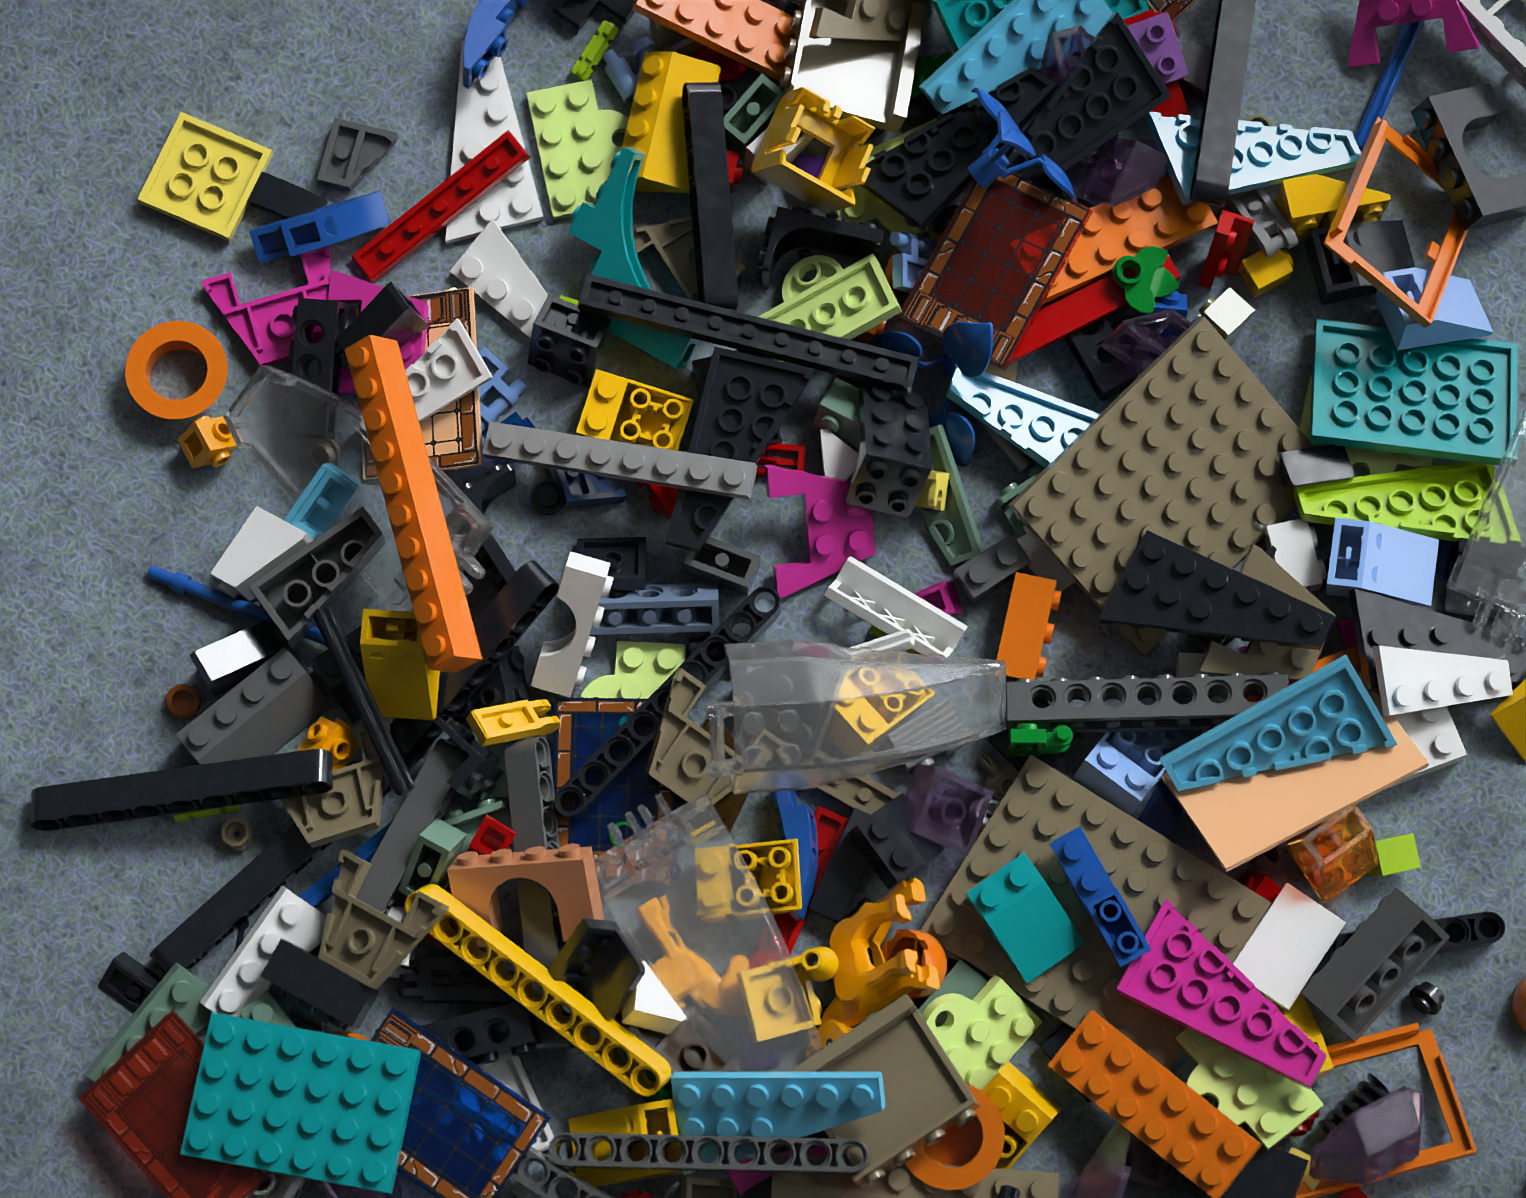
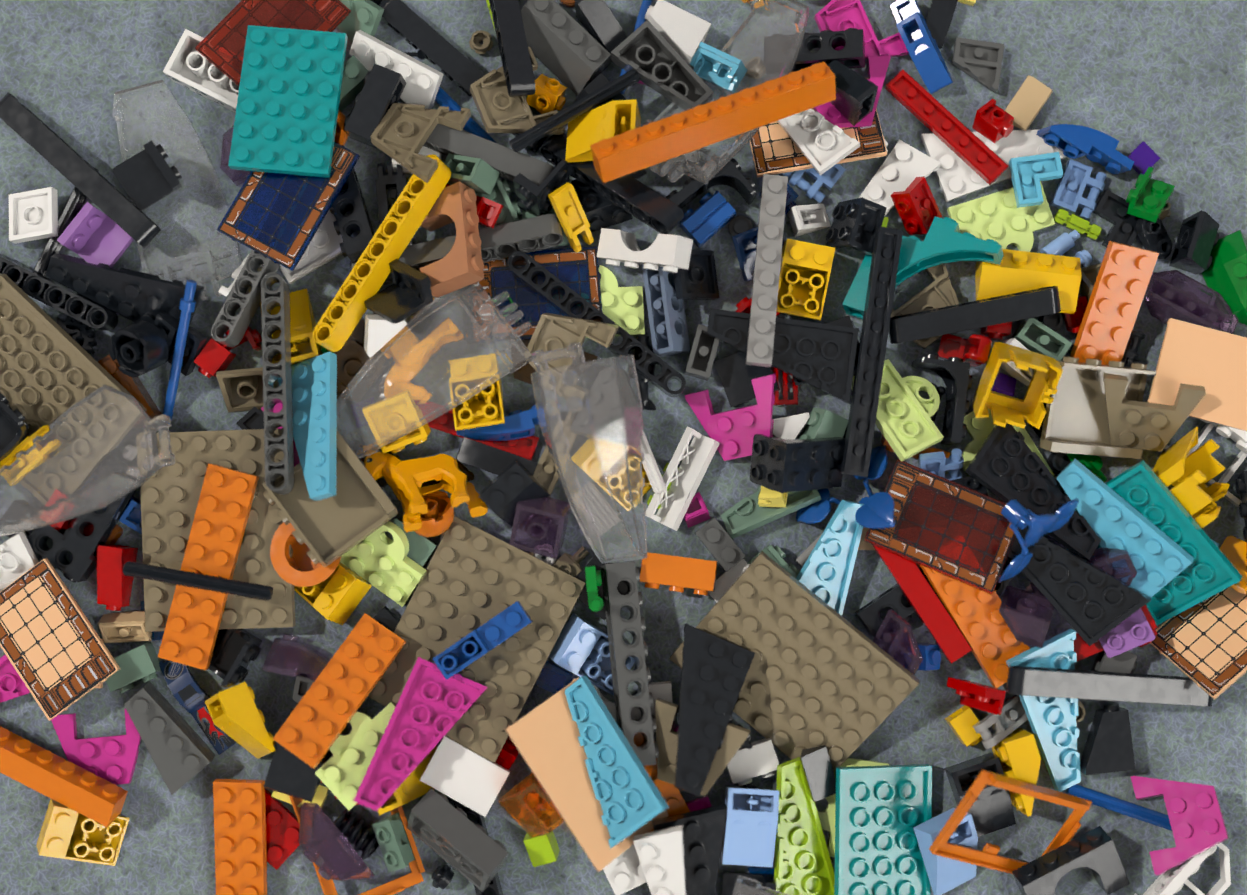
camera: 85 degrees right, 10 degrees up
(421, 97) = (1028, 102): none -> tan slope
(443, 143) = (993, 122): none -> red brick
(520, 106) = (1027, 174): none -> medium azure plate
(531, 537) = (707, 218): none -> blue brick
(543, 52) = (1072, 185): none -> medium blue plate
(548, 404) = (808, 218): none -> white slope
(550, 256) = (916, 206): none -> red bracket
(756, 202) = (972, 350): none -> red animal
(761, 518) = (737, 378): none -> black slope
(826, 965) = (420, 446): yellow cone -> none
(1024, 918) = (465, 587): teal slope -> none
(1149, 281) = (946, 641): green plate -> none
(1227, 314) = (924, 698): brick -> none
(1301, 88) = (1108, 743): none -> black slope
(1374, 1059) = (393, 842): none -> sand green bracket

